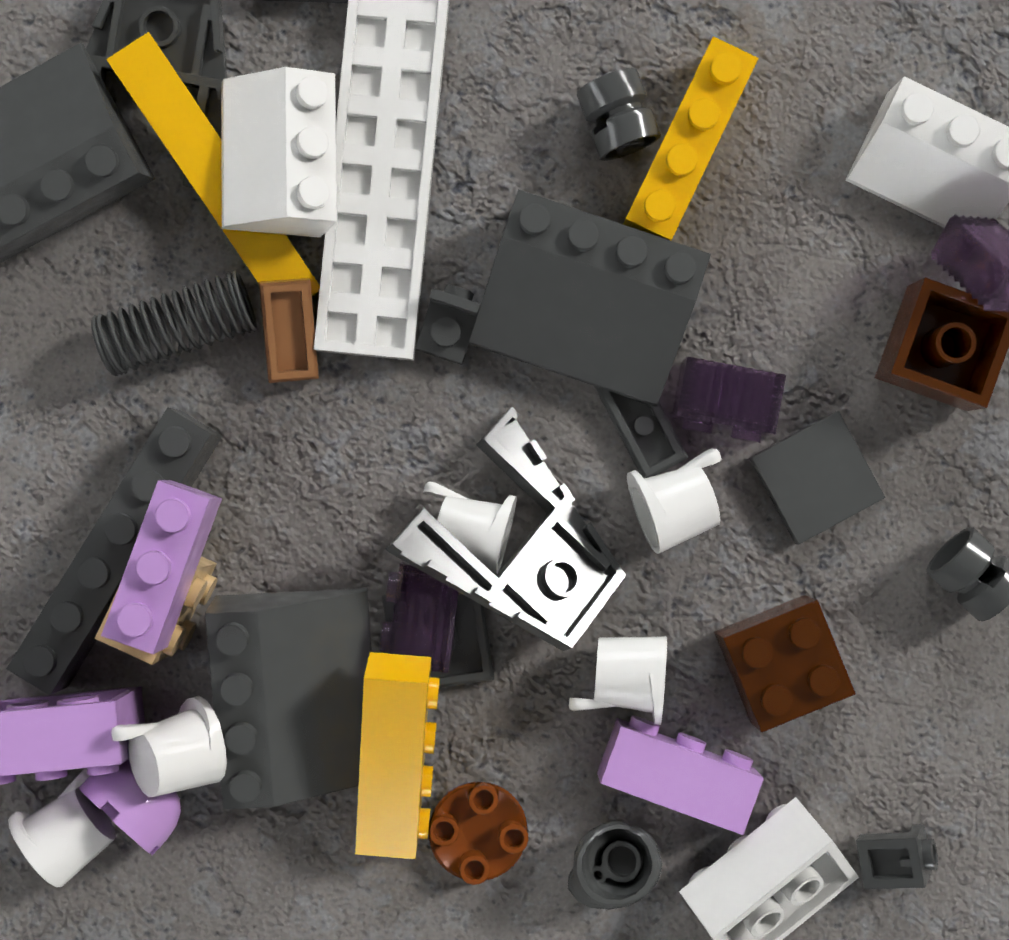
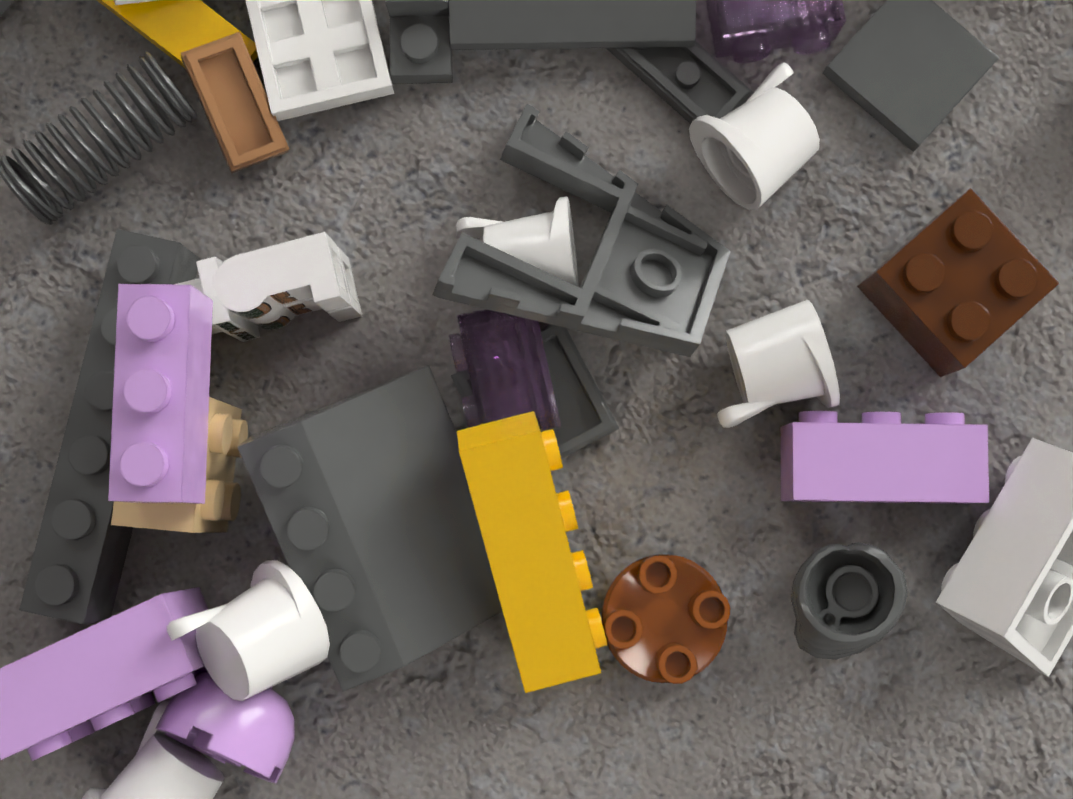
camera: 20 degrees left, 5 degrees down
(262, 490) = (276, 285): none -> white hips

